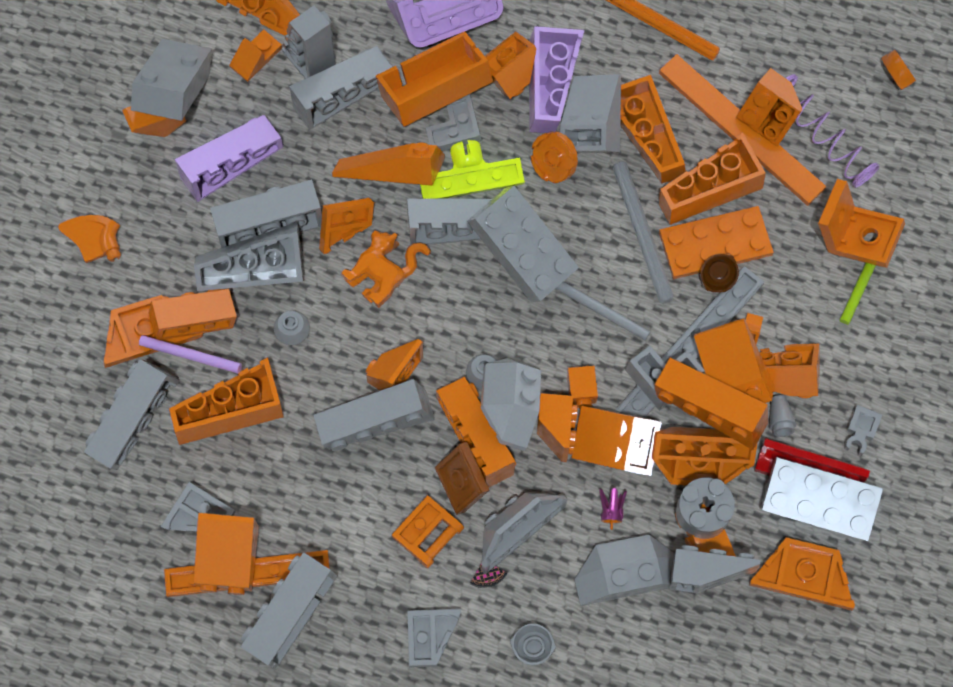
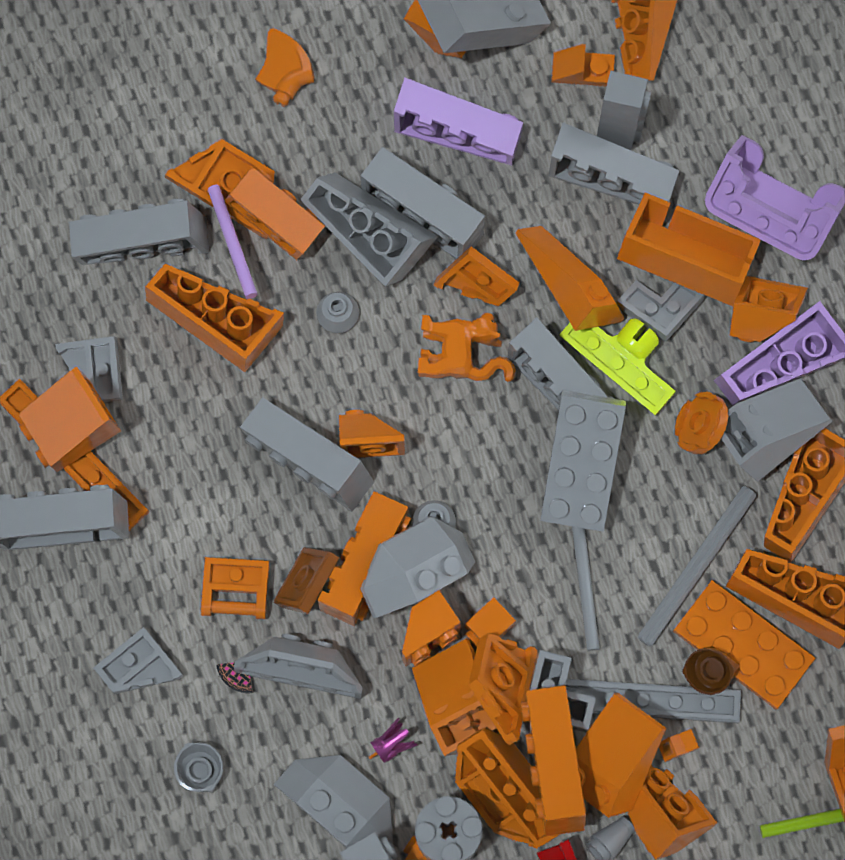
camera: 55 degrees right, 5 degrees up
(633, 400) = (500, 682): none -> orange wing

